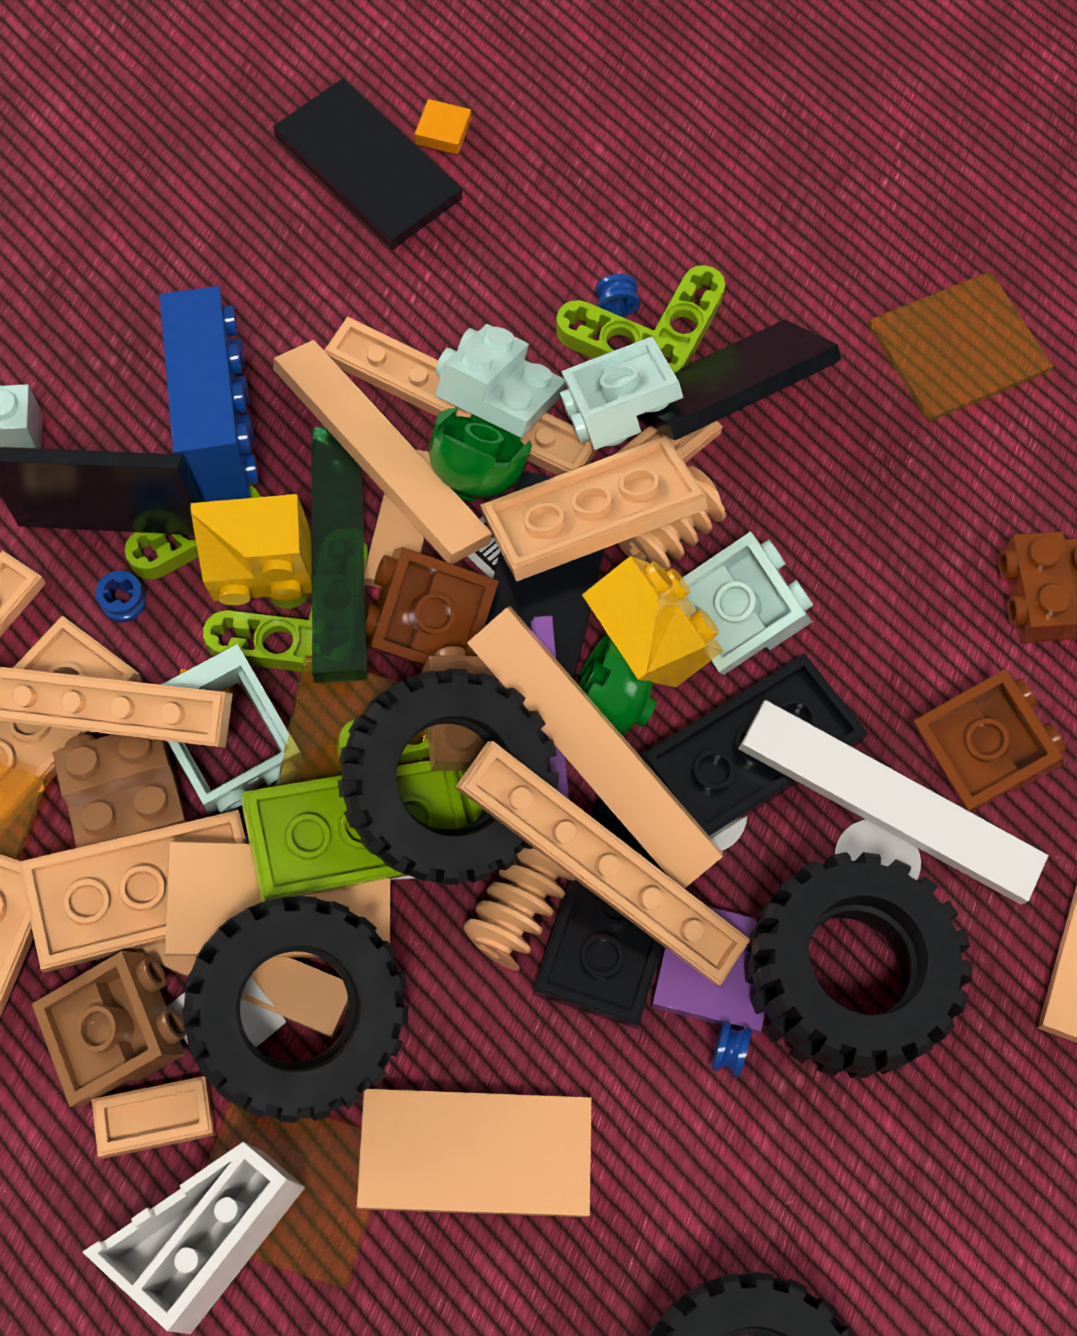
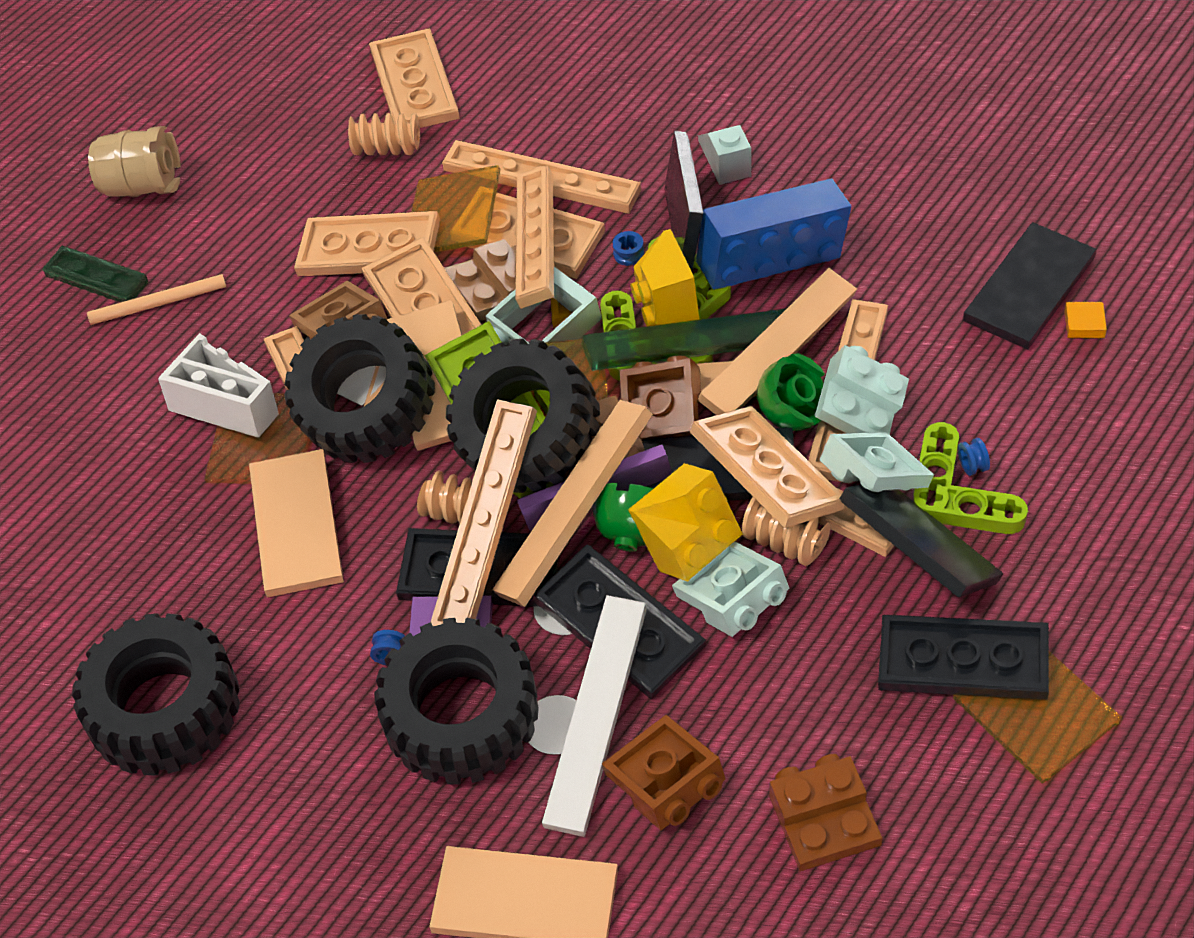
camera: 85 degrees right, 15 degrees down
(887, 392) = (964, 657): none -> black tile

